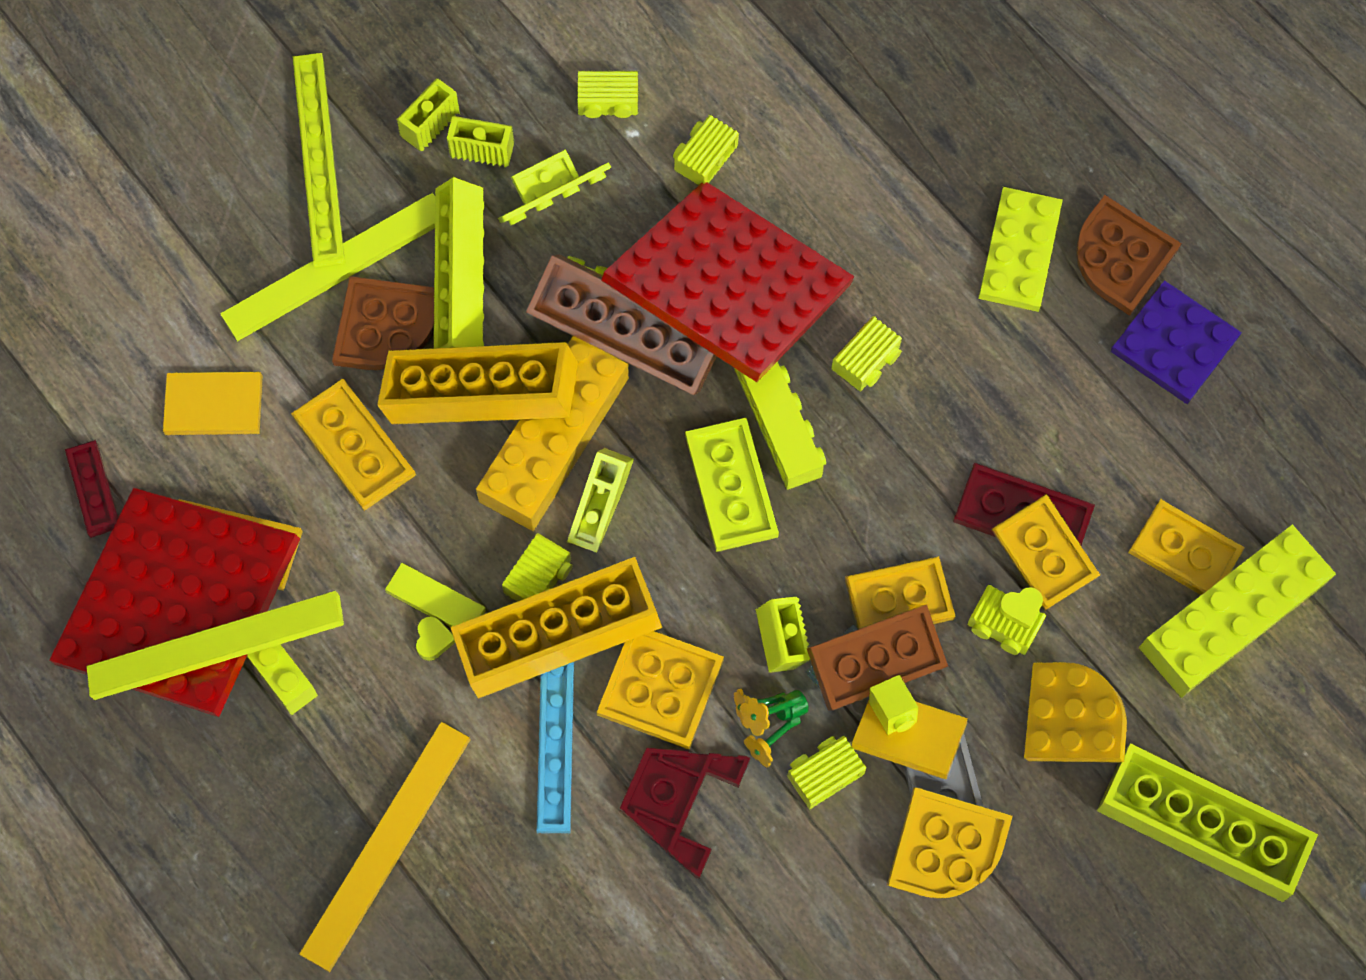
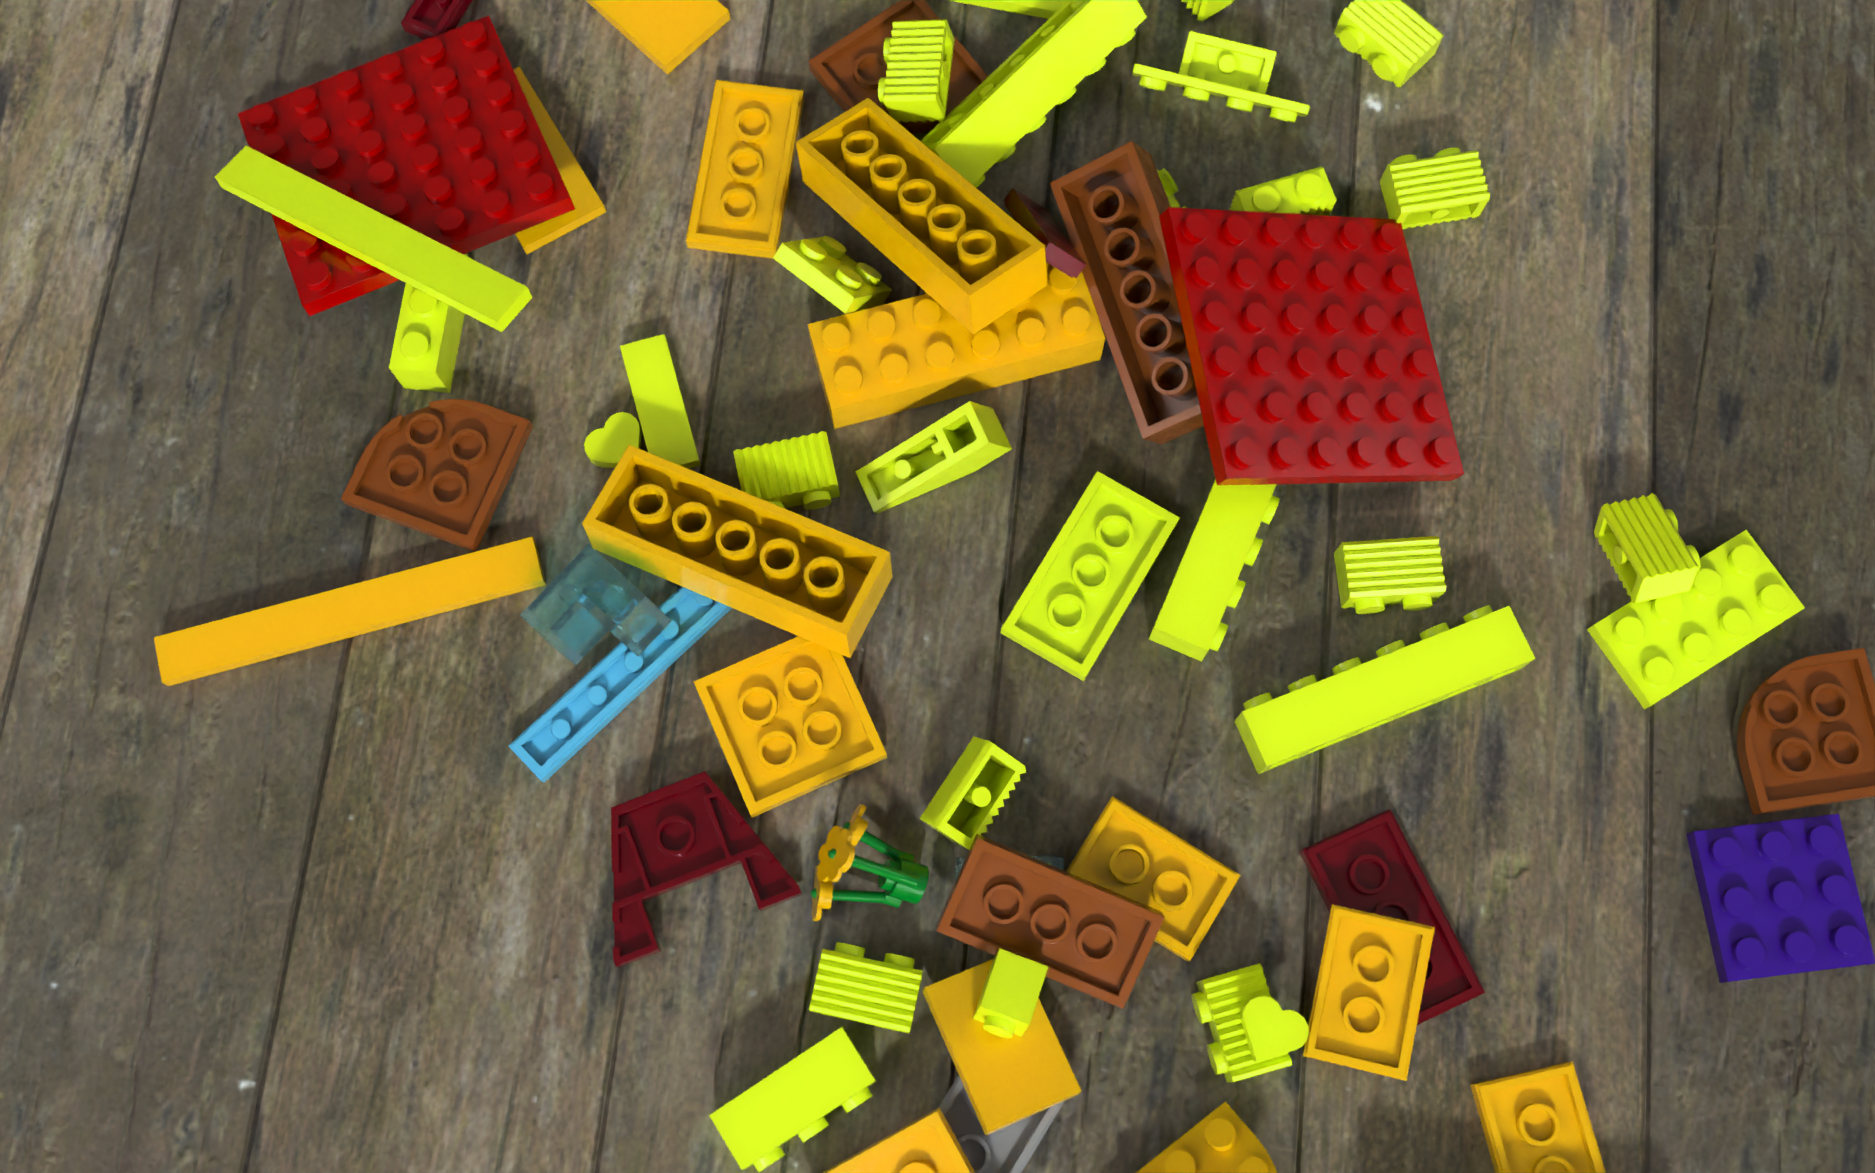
camera: 45 degrees right, 5 degrees up
(358, 734) = (440, 469): none -> dark orange plate
(399, 314) = (917, 70): none -> neon yellow brick
(458, 454) = (833, 274): none -> neon yellow plate
(508, 717) = (588, 603): none -> clear light blue brick
(539, 336) = (1042, 226): none -> dark red tile
(646, 213) = (1294, 194): none -> neon yellow brick
(845, 852) = (794, 1101): none -> neon yellow brick
(917, 411) = (1383, 688): none -> neon yellow brick
(969, 236) = (1646, 548): none -> neon yellow brick

